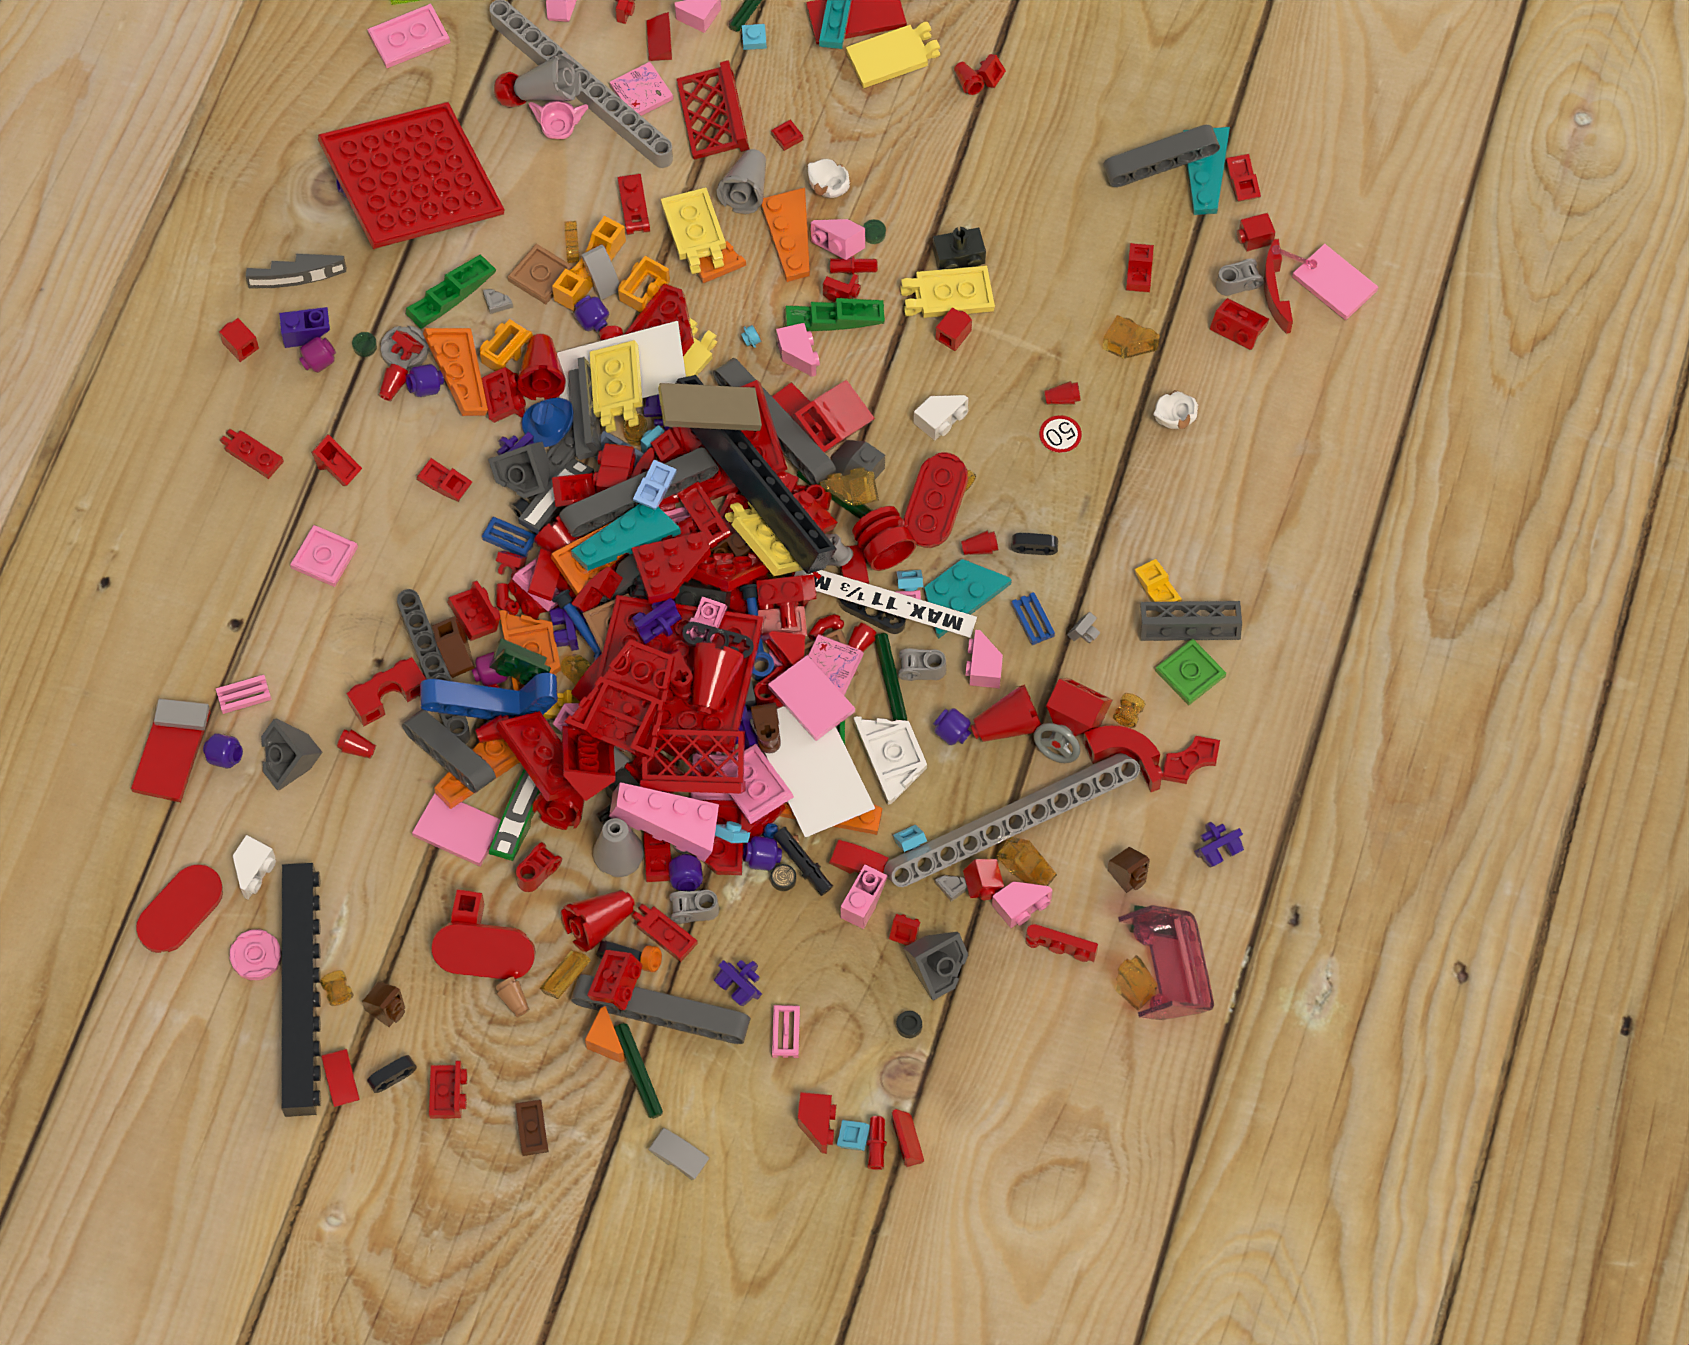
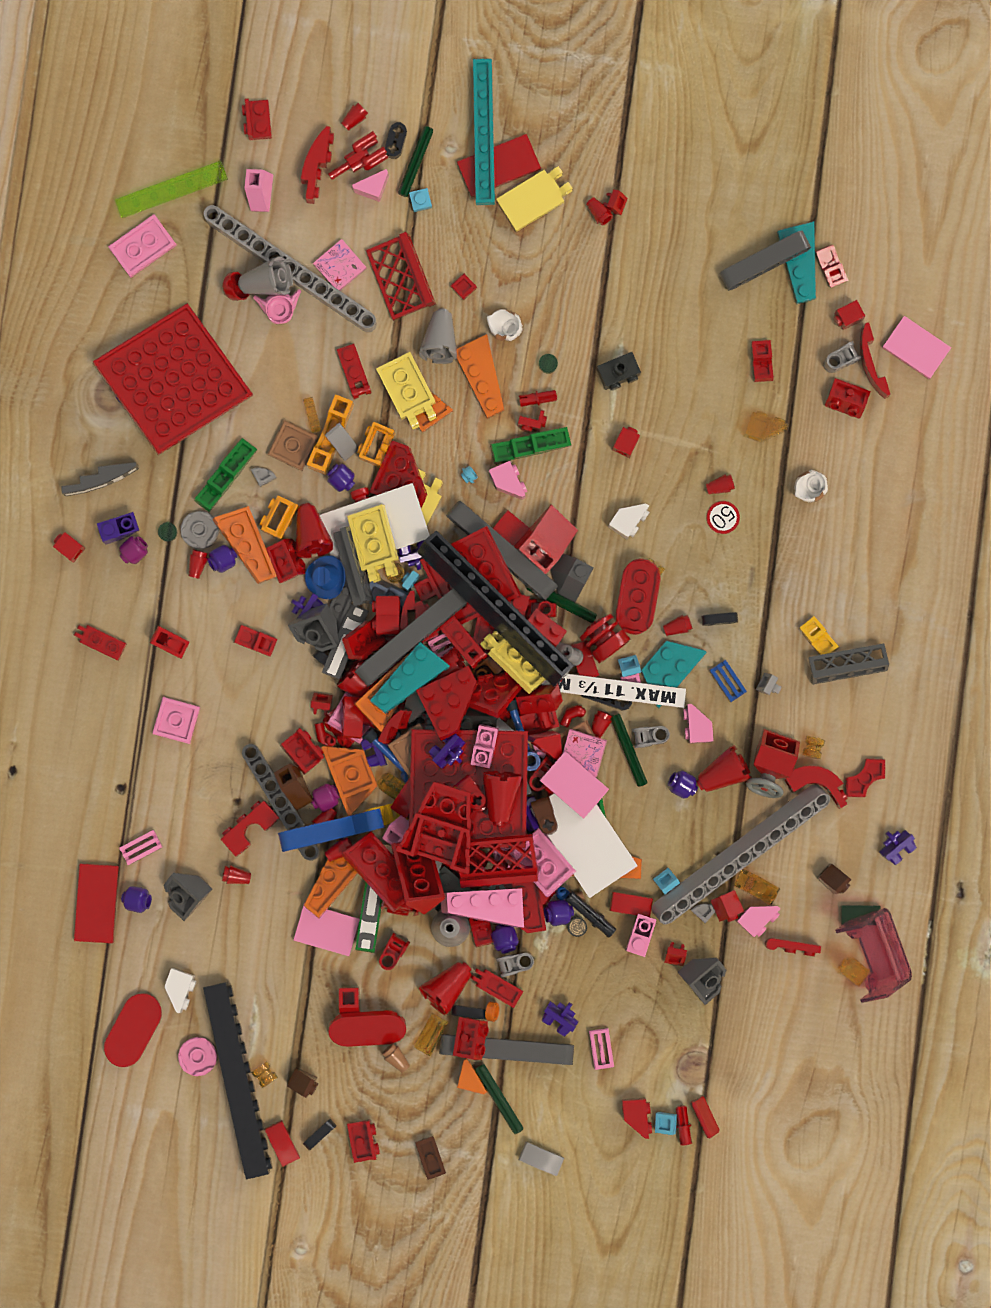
camera: 10 degrees left, 20 degrees up
(181, 714) = (98, 875): light grey tile -> none
(408, 343) = (202, 530): red tile -> none
(449, 751) = (309, 875): dark grey beam -> none
(508, 537) = (299, 676): blue tile -> none
(517, 662) = (347, 794): dark green bracket -> none
(655, 485) = (423, 634): light blue slope -> none
(659, 38) = (344, 214): red slope -> none
(668, 446) = (424, 589): red tile -> none
(701, 628) = (483, 768): black beam -> none
(709, 407) = (454, 562): dark tan tile -> none
(732, 832) = (535, 906): medium azure plate -> none
(838, 236) = (522, 376): bright pink slope -> none
(853, 489) = (573, 601): clear yellow slope -> none
(892, 754) = (641, 813): white wing -> none
(909, 1024) = (690, 1027): pearl dark grey tile -> none
(940, 290) = (617, 408): light yellow tile -> none
(1190, 671) = (854, 705): bright green tile -> none
(1312, 264) = (897, 337): clear pink hinge -> none

